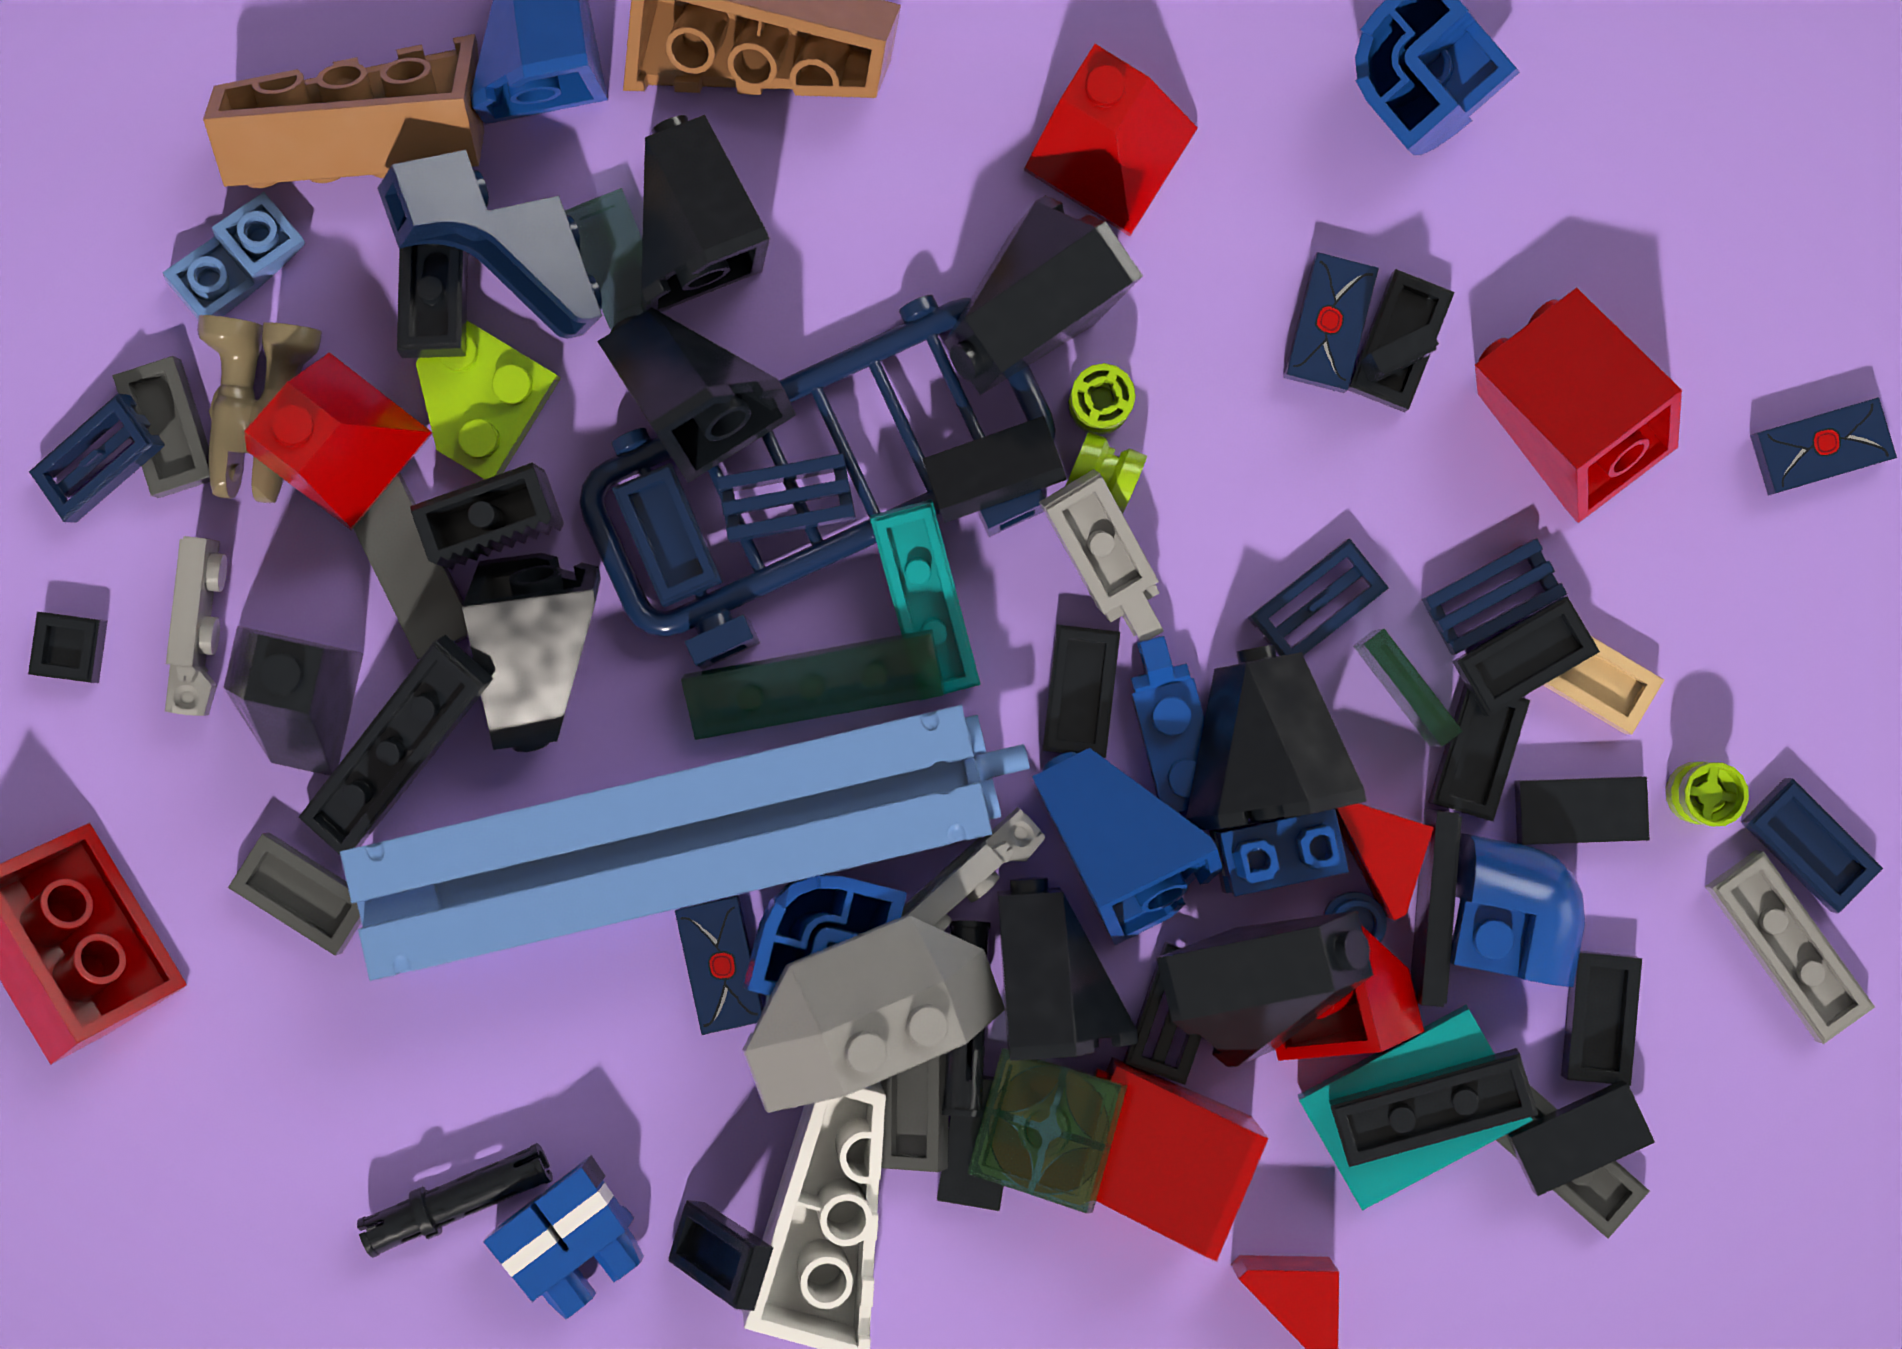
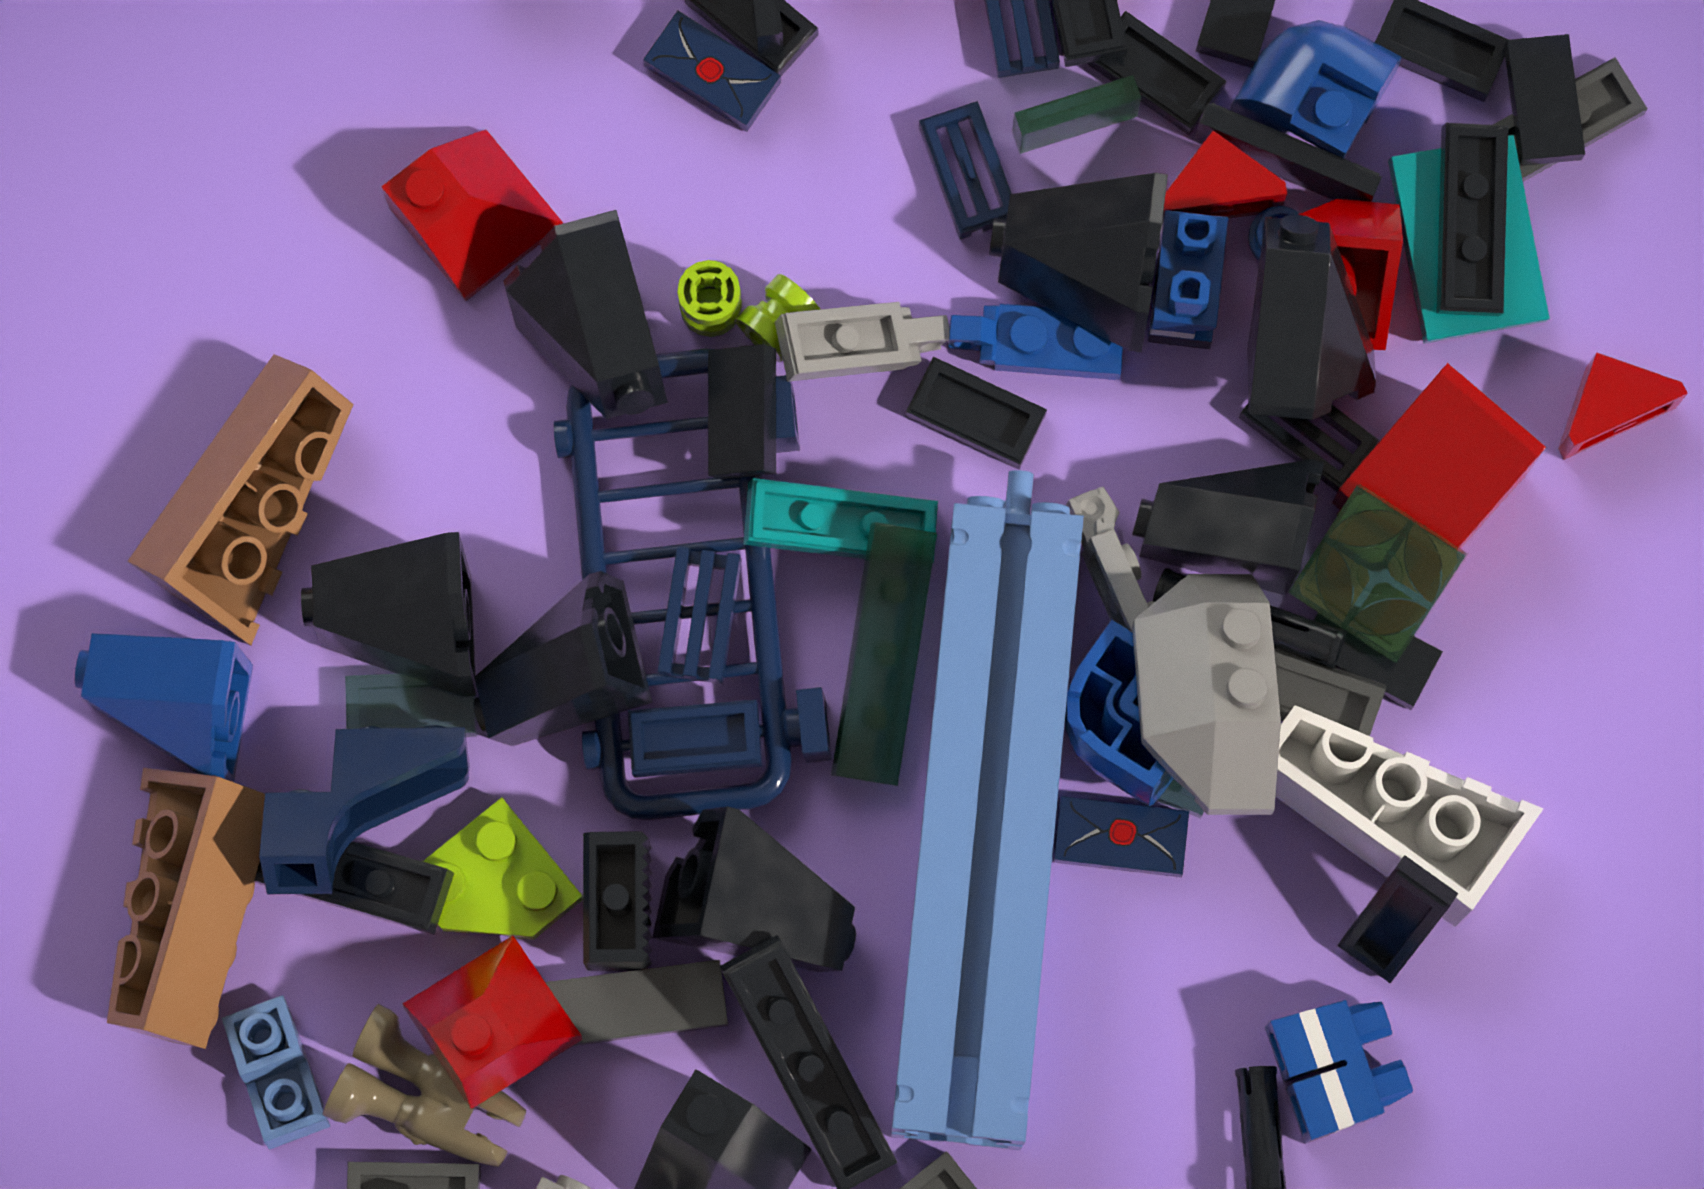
camera: 70 degrees left, 10 degrees down
(1124, 842) = (1132, 415): blue slope -> none

